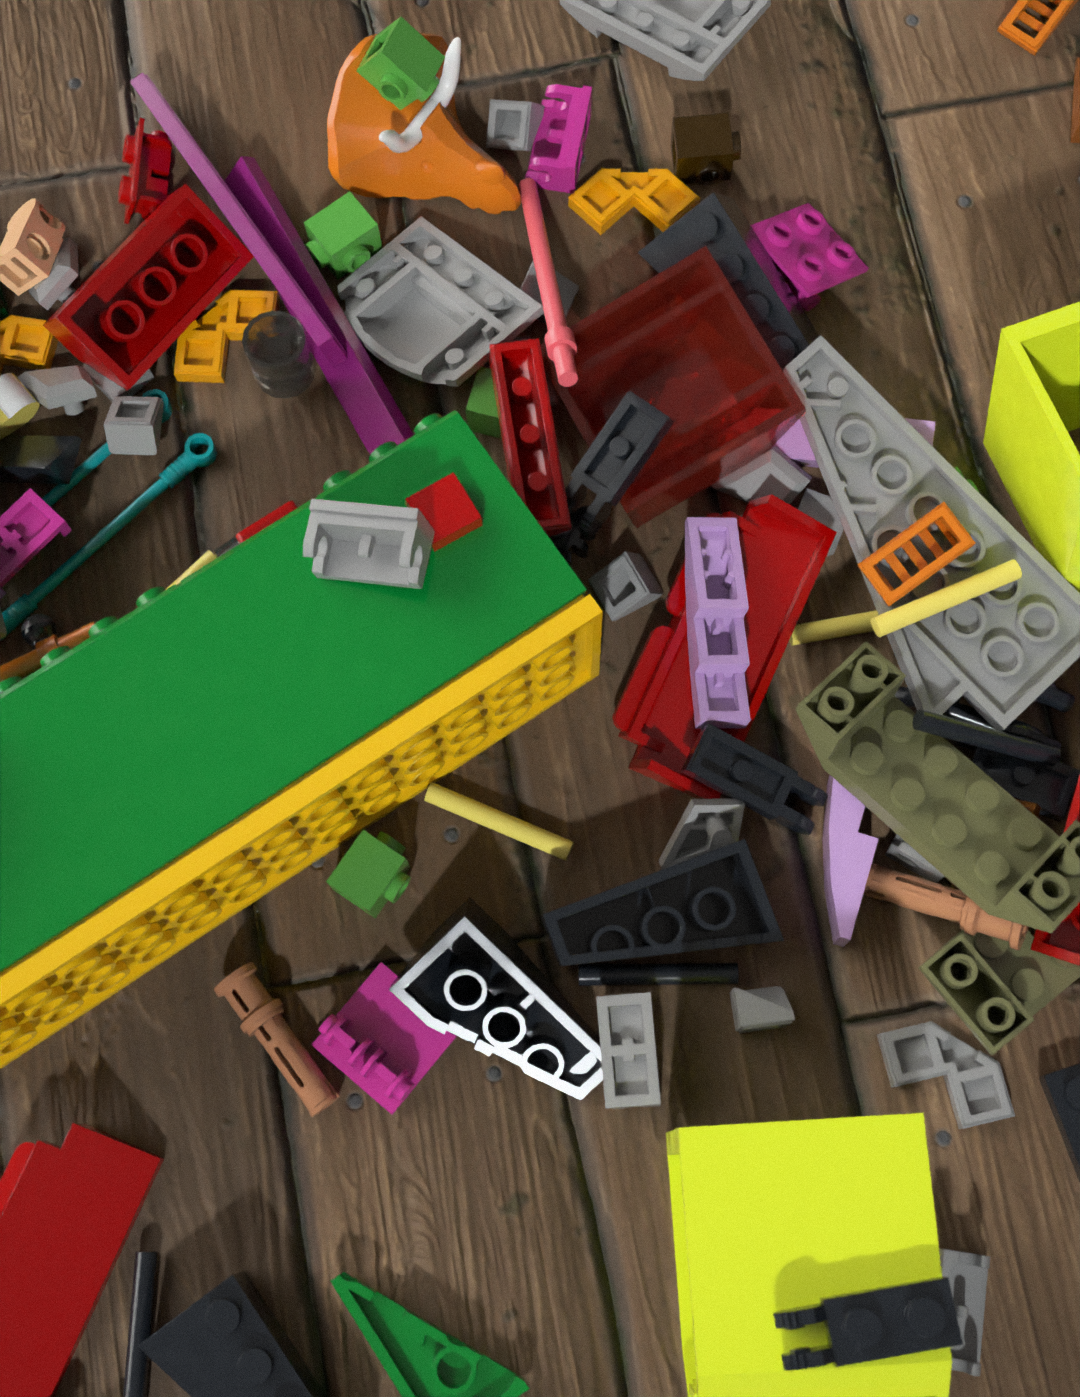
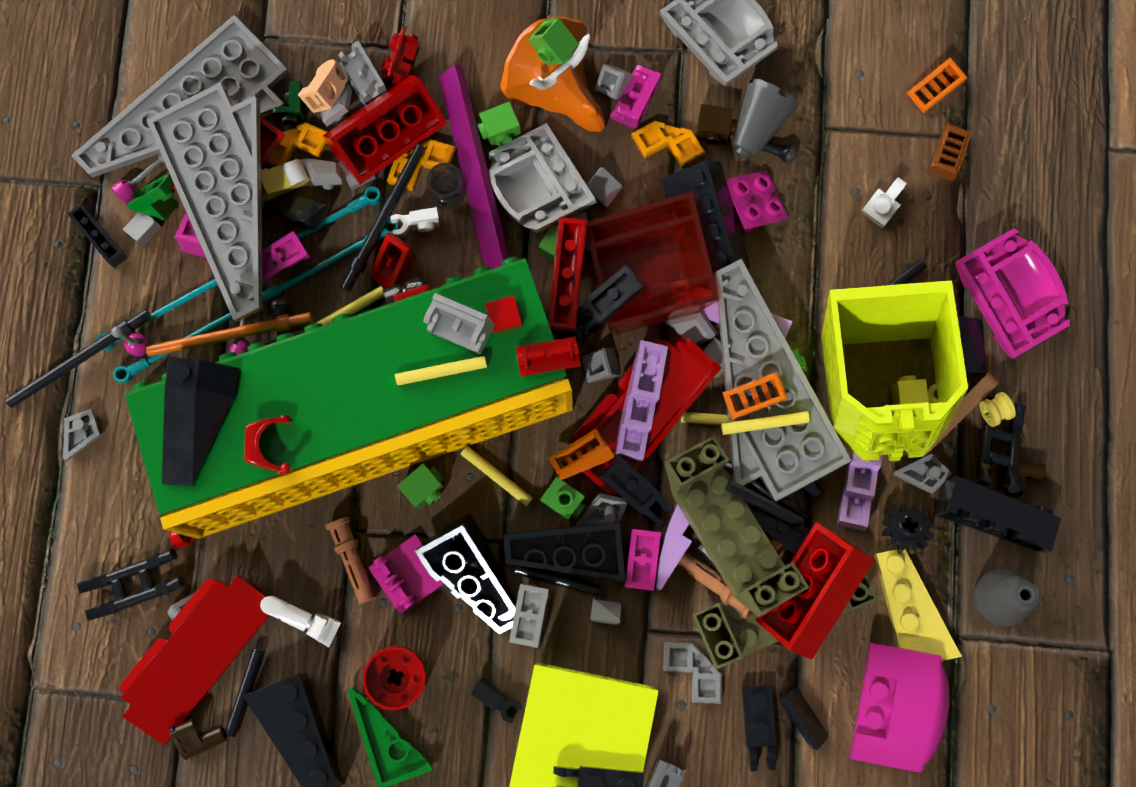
camera: 15 degrees right, 5 degrees up
(44, 874) = (252, 450): none -> red helmet
(87, 212) = (362, 74): none -> light grey hinge
(134, 425) = (358, 205): light grey slope -> none
(160, 520) = (358, 263): none -> black bar
(218, 500) = (392, 261): none -> red slope
(240, 221) = (443, 101): magenta tile -> none
(245, 423) = (420, 220): none -> white plate
(251, 1179) = (319, 628): none -> white piece
(357, 637) = (440, 370): none -> light yellow bar
(414, 1268) = (391, 695): none -> red wheel
(545, 562) = (548, 356): none -> red hinge
(559, 339) = (598, 223): coral bar -> none
(605, 1221) = (494, 699): none -> black bar
(629, 830) = (563, 500): none -> bright green brick
(665, 729) = (597, 454): none -> orange slope
(777, 113) = (761, 117): none -> dark grey cone
(802, 896) = (643, 560): none -> dark pink hinge
(833, 166) = (786, 153): none -> black piece
(1019, 208) = (883, 205): none -> white plate

